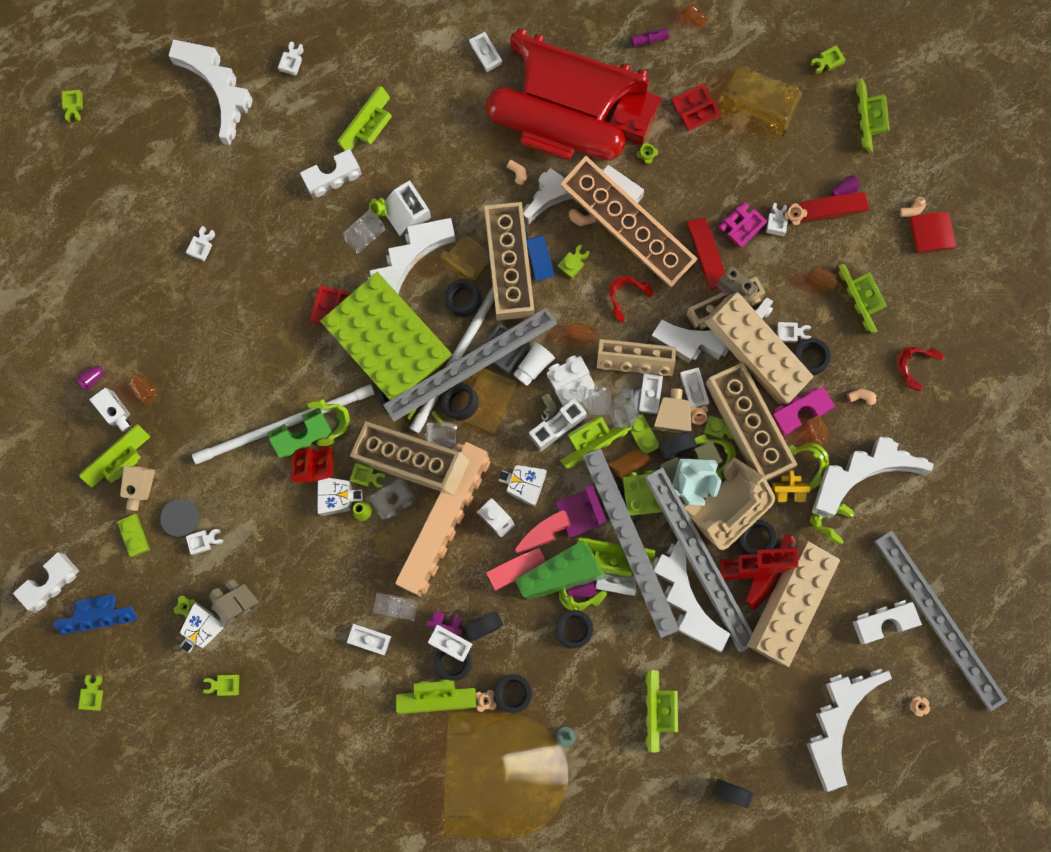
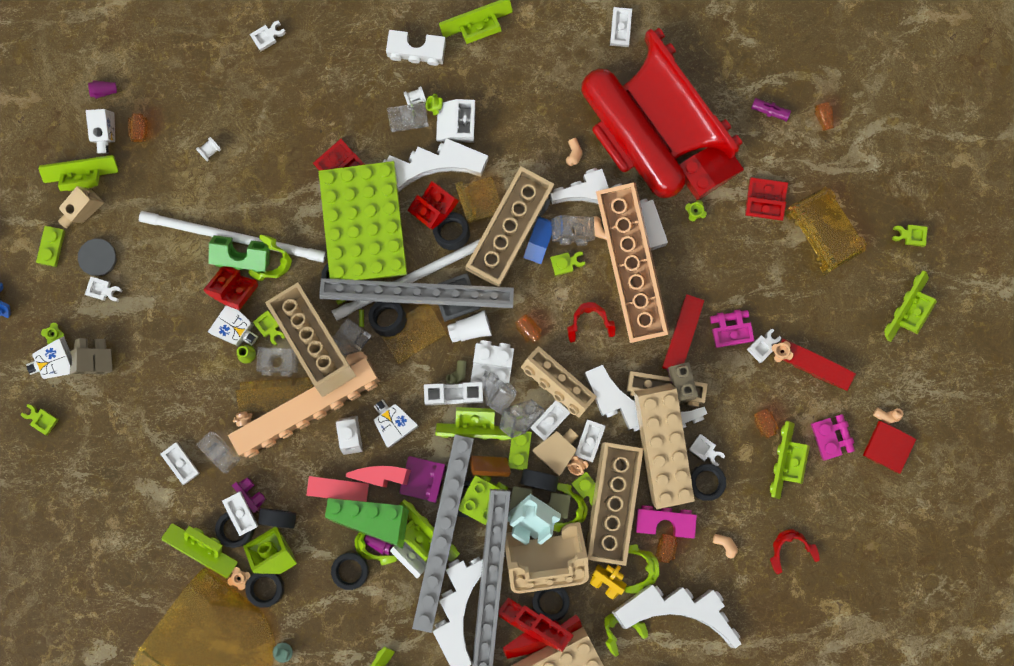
camera: 30 degrees right, 5 degrees up
(214, 366) = (208, 149): none -> white bush
(358, 211) = (415, 96): none -> white bush
(396, 565) = (243, 418): none -> light nougat plate
(434, 287) = (433, 205): none -> red slope
(497, 661) = (269, 553): none -> lime slope
(561, 230) = (582, 227): none -> clear brick
(847, 186) = (843, 357): magenta cone -> none
(881, 260) = (827, 440): none -> dark pink plate

